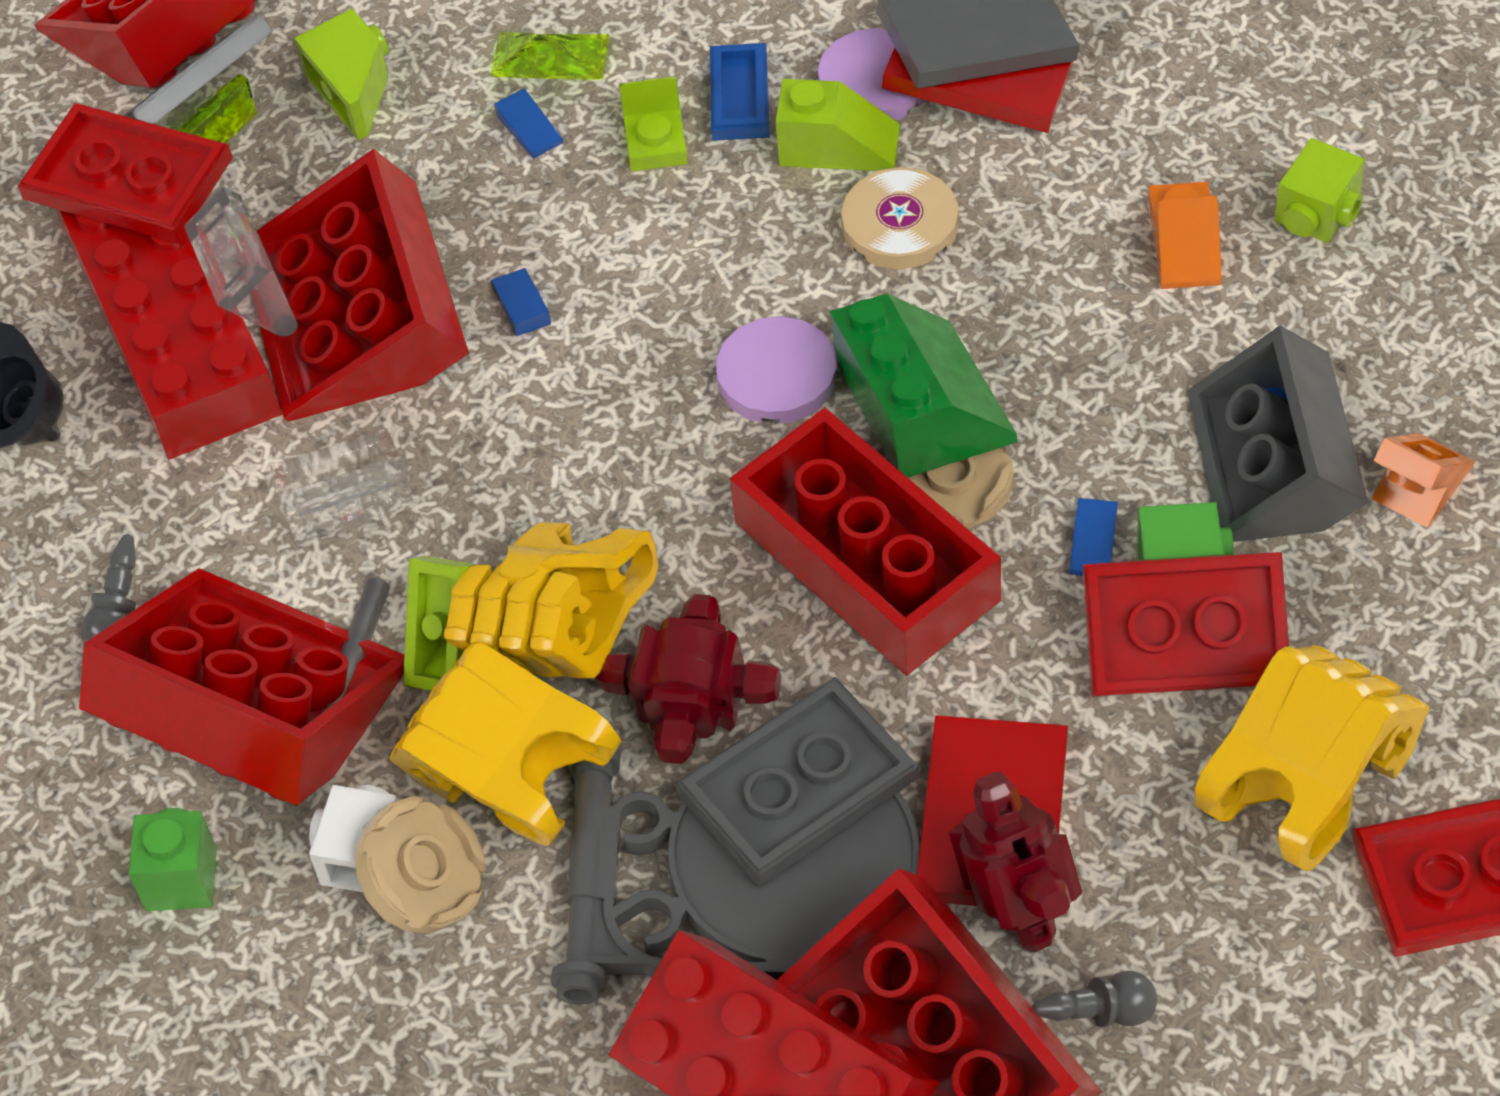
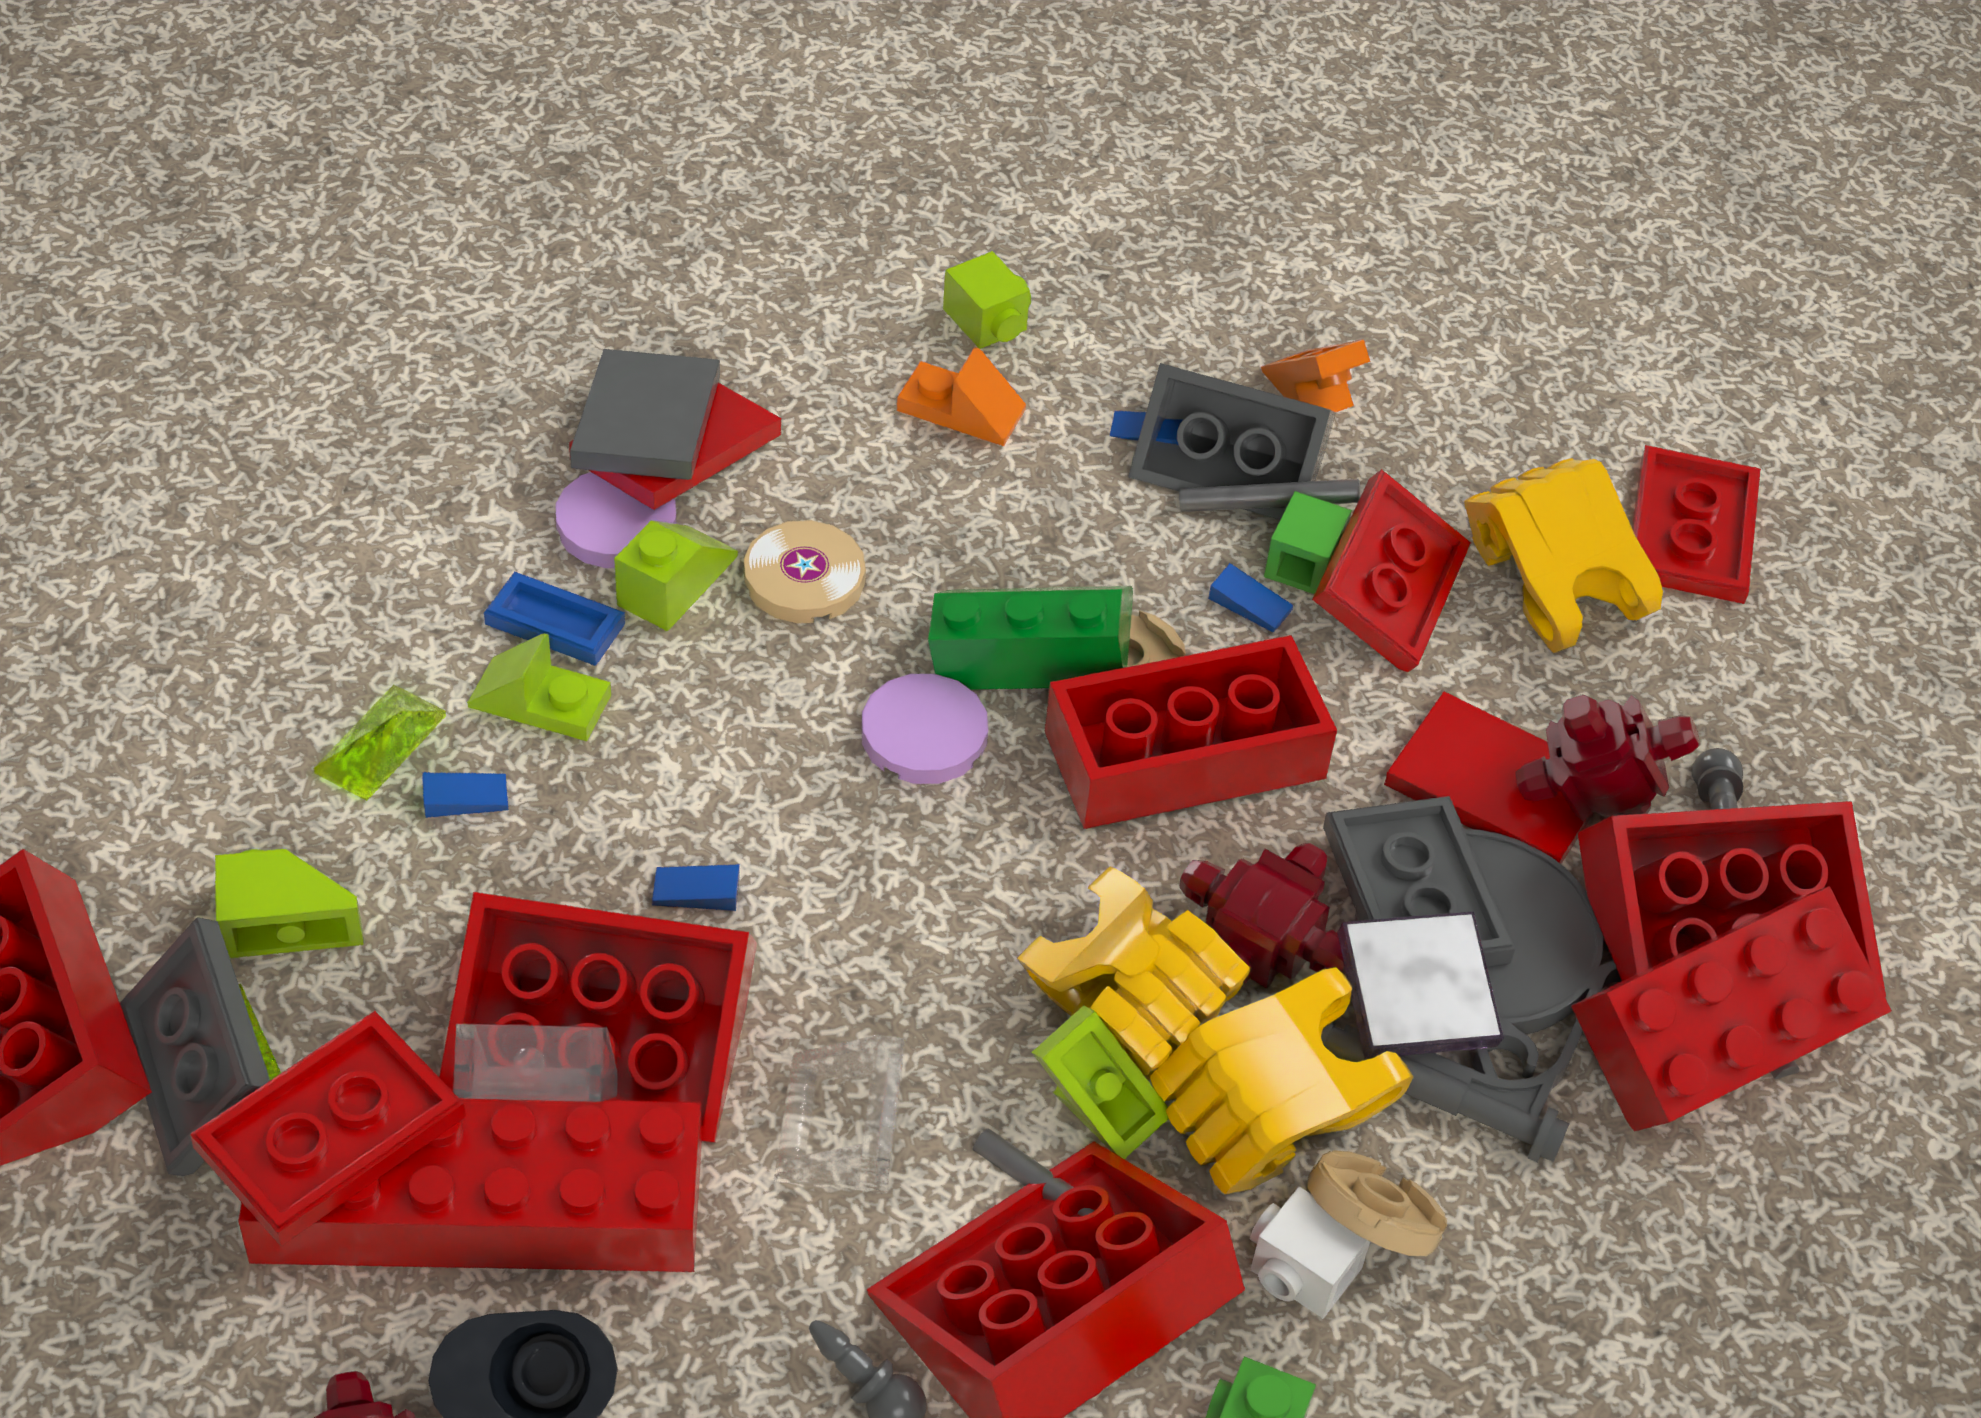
camera: 75 degrees left, 5 degrees down
(661, 808) = (1420, 984): none -> flat silver tile
(1220, 491) = (1266, 495): none -> flat silver bar

